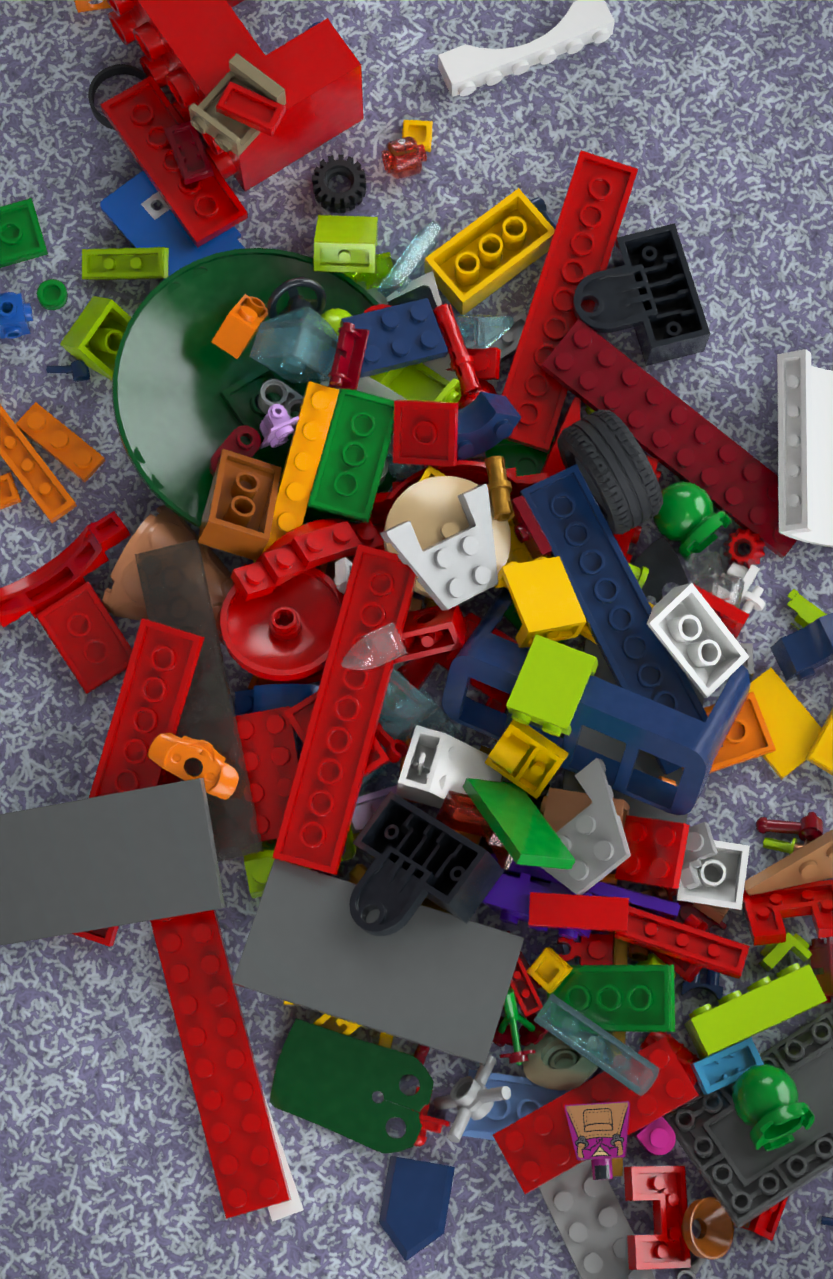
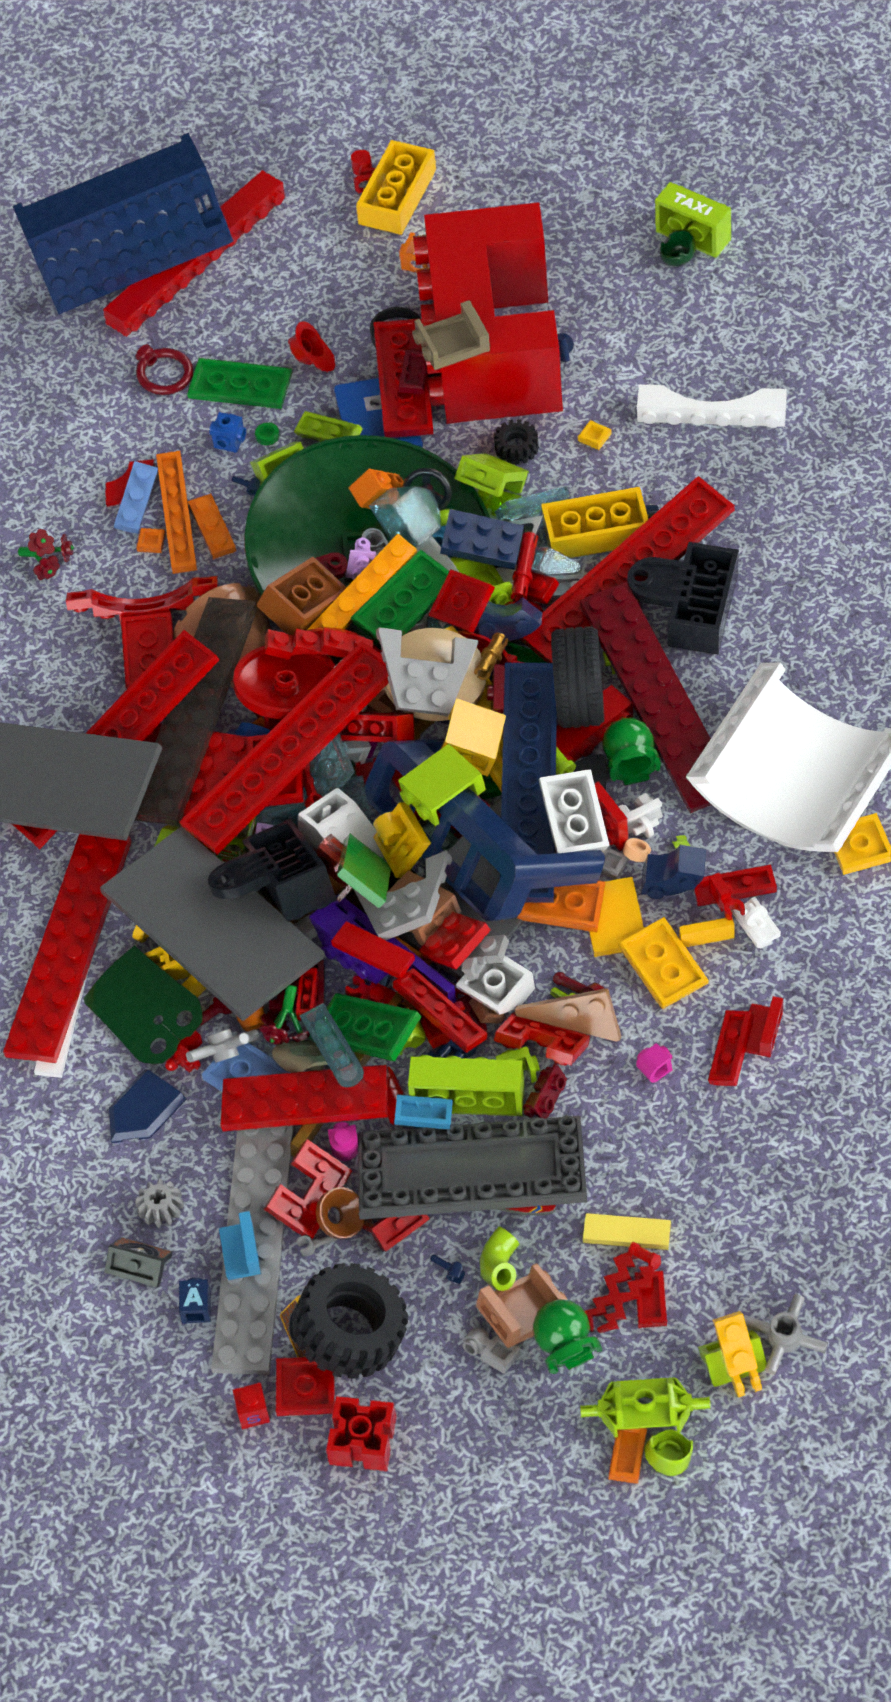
camera: 35 degrees right, 20 degrees down
(41, 165) = (310, 348): none -> red piece
(173, 751) = (173, 752): orange piece -> none
(250, 108) = (459, 340): red tile -> none
(348, 357) = (428, 536): dark red hinge -> none
(375, 649) = (333, 711): clear plate -> none
(403, 157) = (572, 441): clear red head -> none
(549, 970) = (334, 992): yellow tile -> none
(599, 1134) = (295, 1097): torso -> none
(707, 573) = (624, 795): clear tile -> none
(744, 536) = (664, 788): red piece -> none
(757, 632) = (636, 850): none -> light nougat tile
(769, 1104) = (432, 1144): green tile -> none

